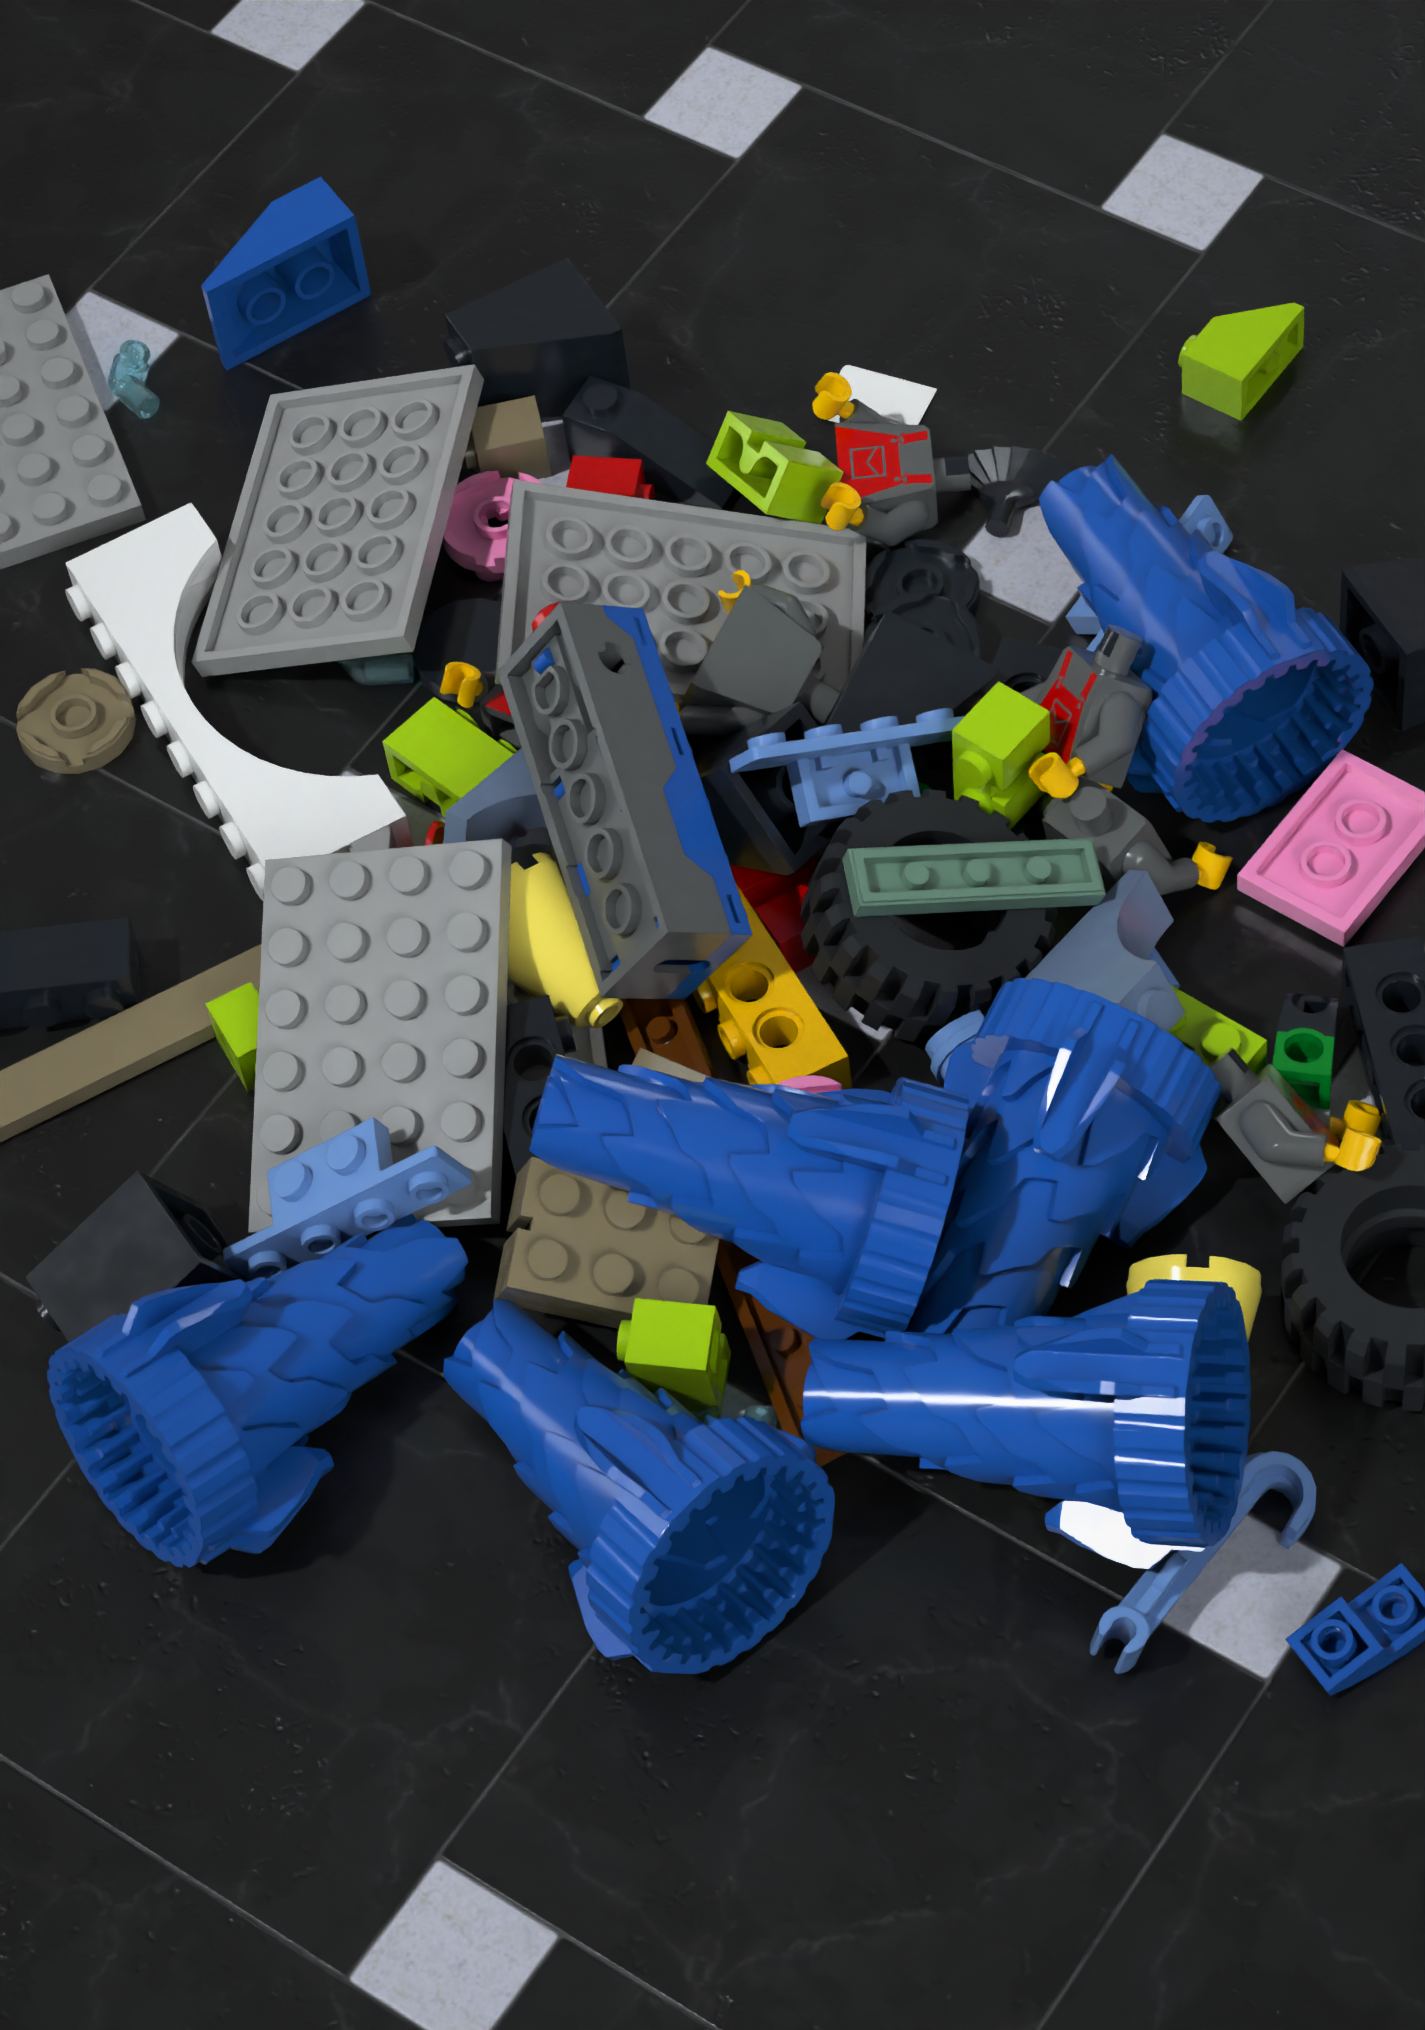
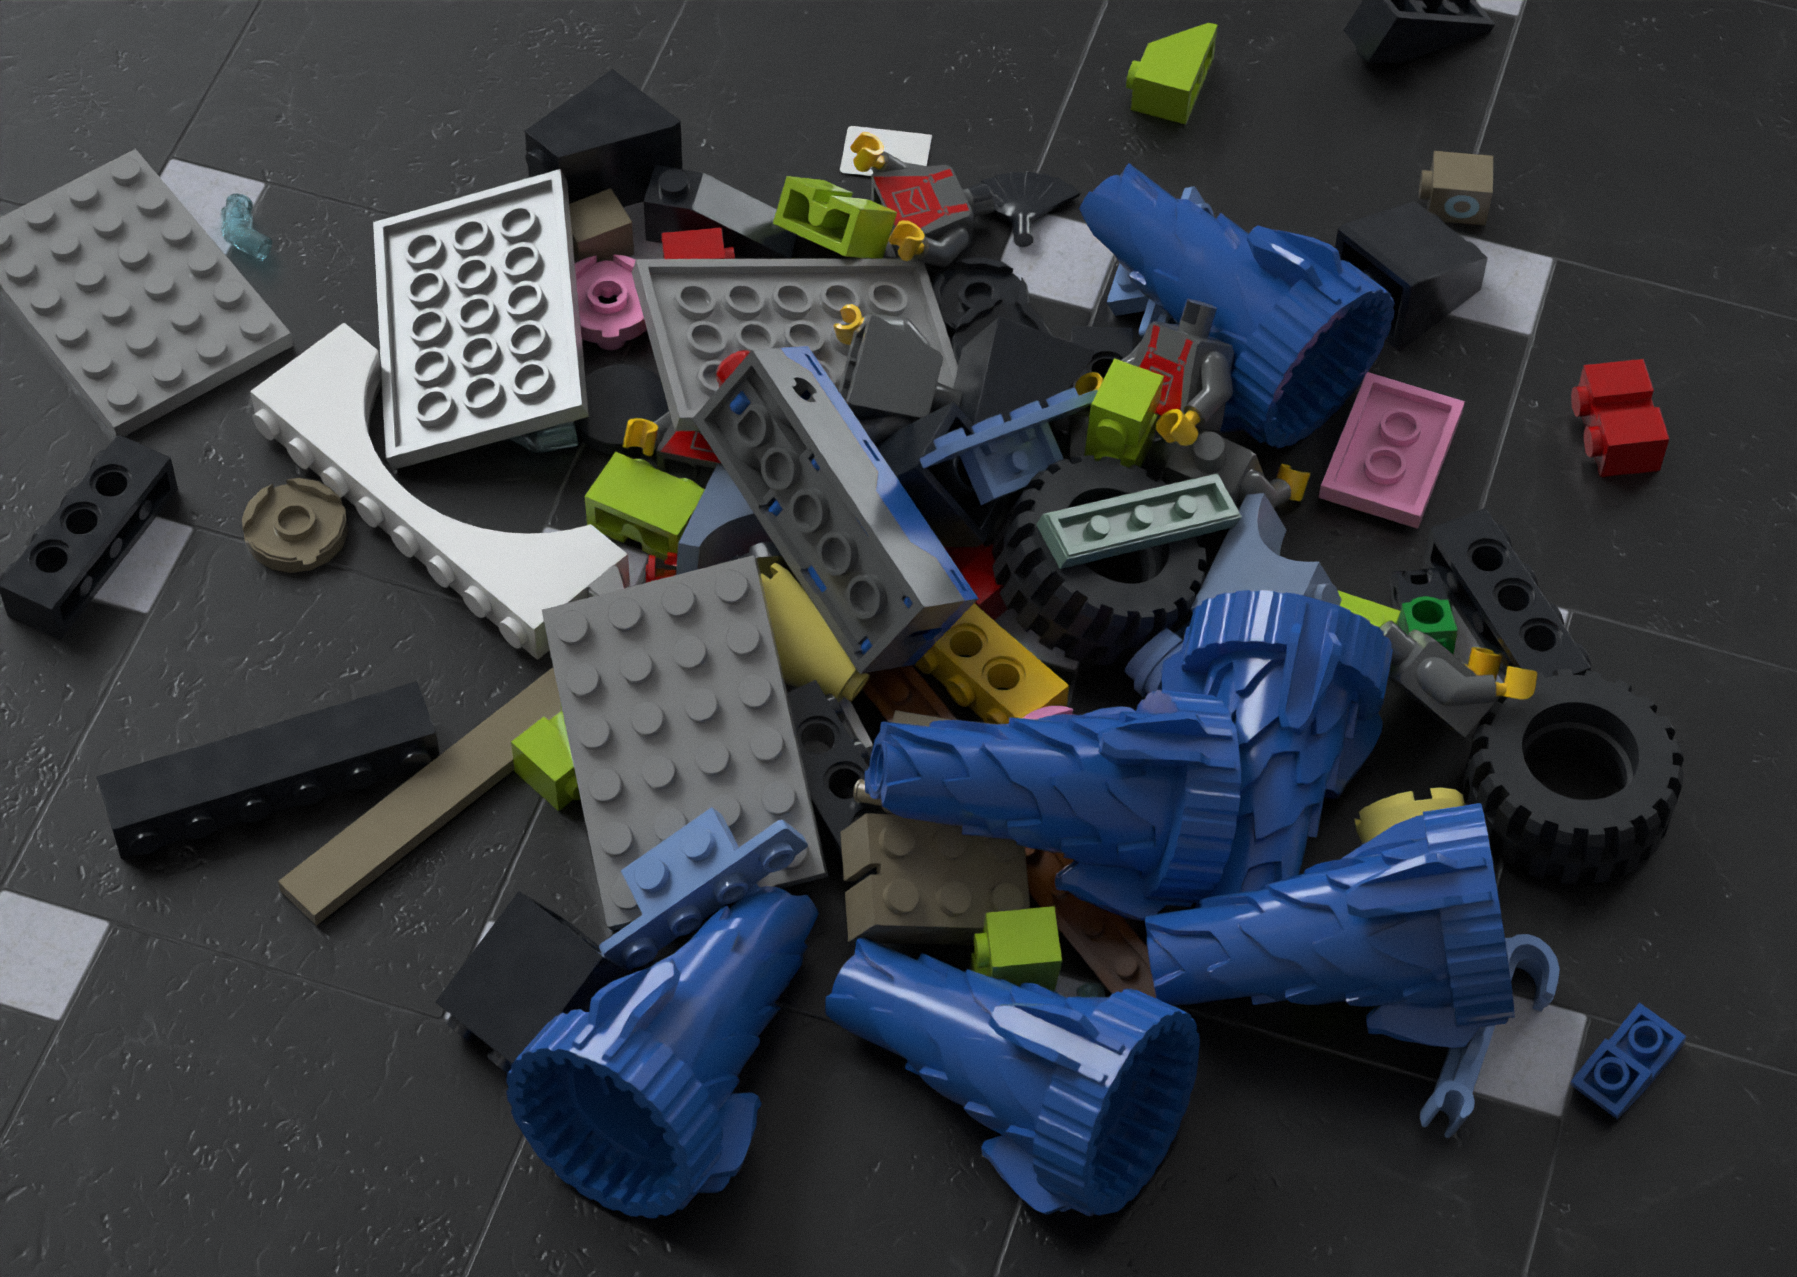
camera: 25 degrees left, 0 degrees up
(286, 273) = (361, 115): blue slope -> none

